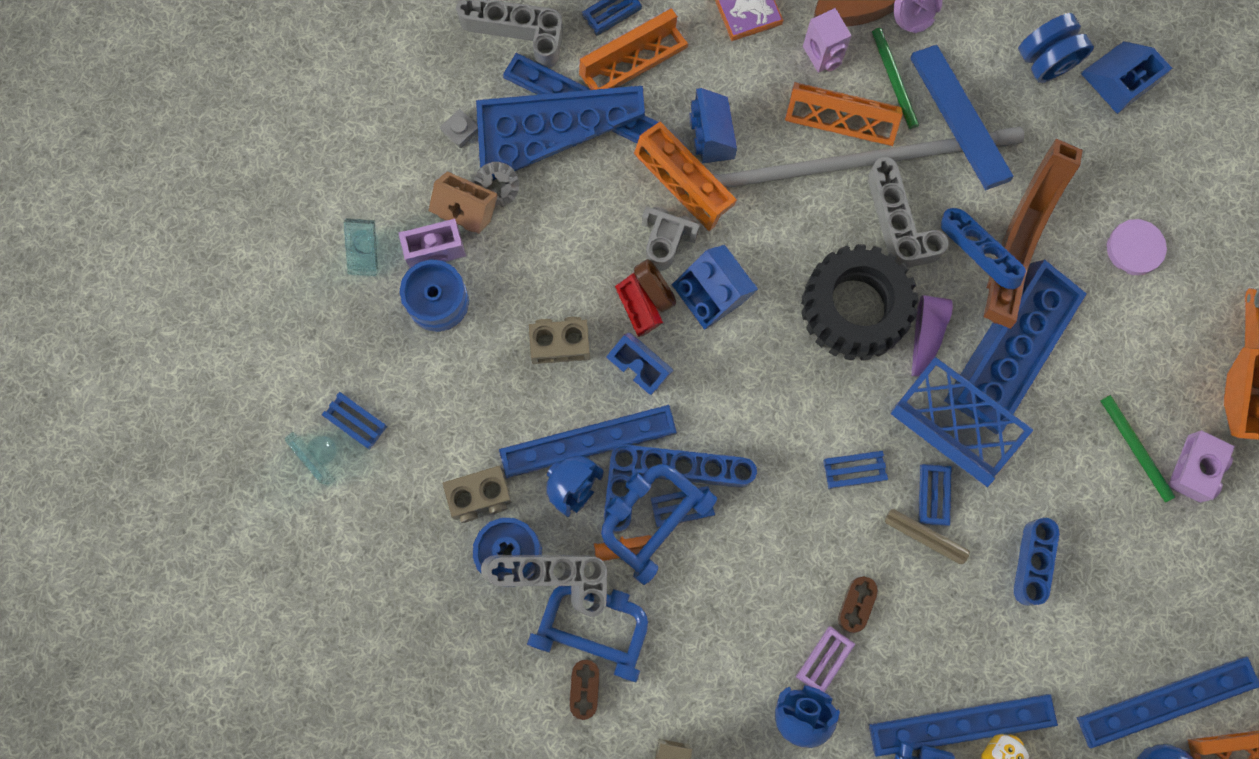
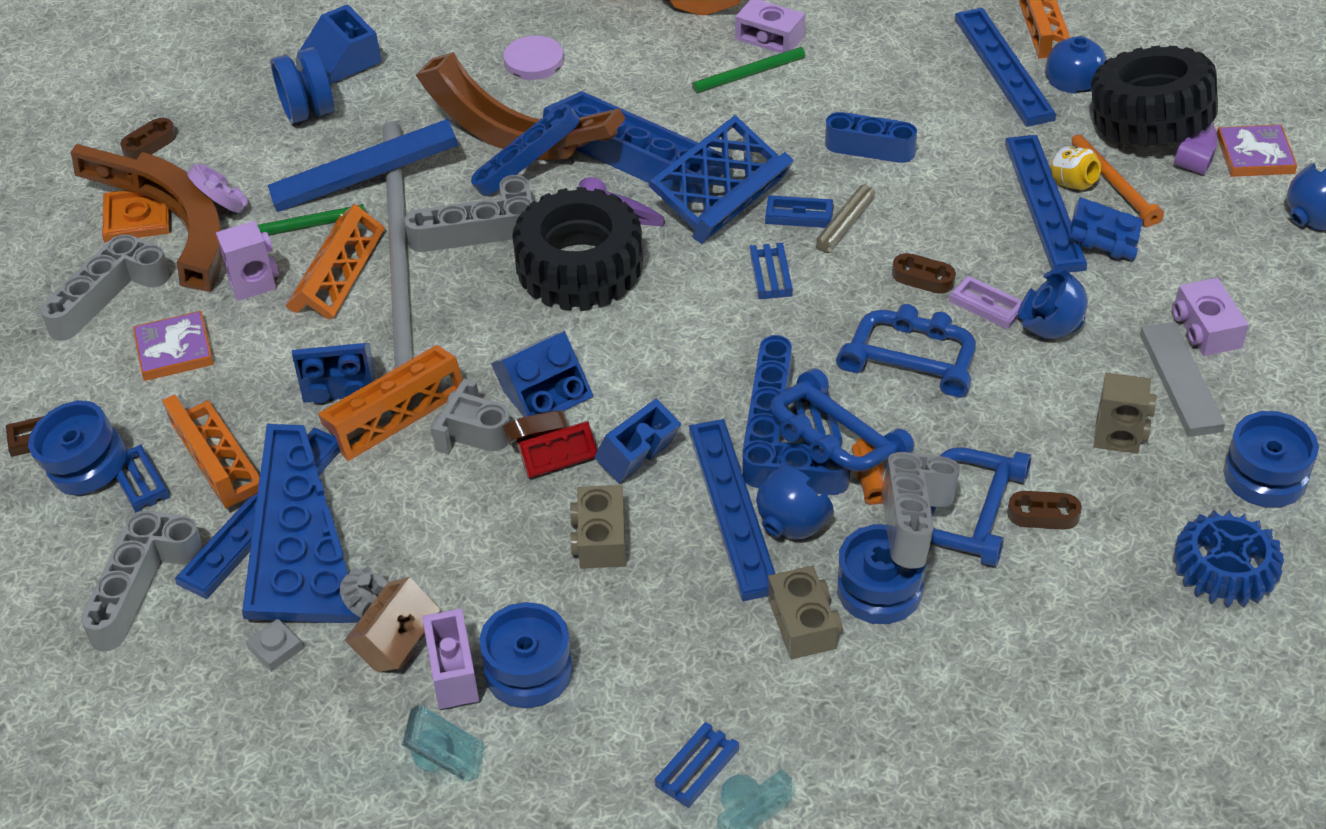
camera: 85 degrees left, 30 degrees down
(797, 587) = (955, 377): none -> blue bar

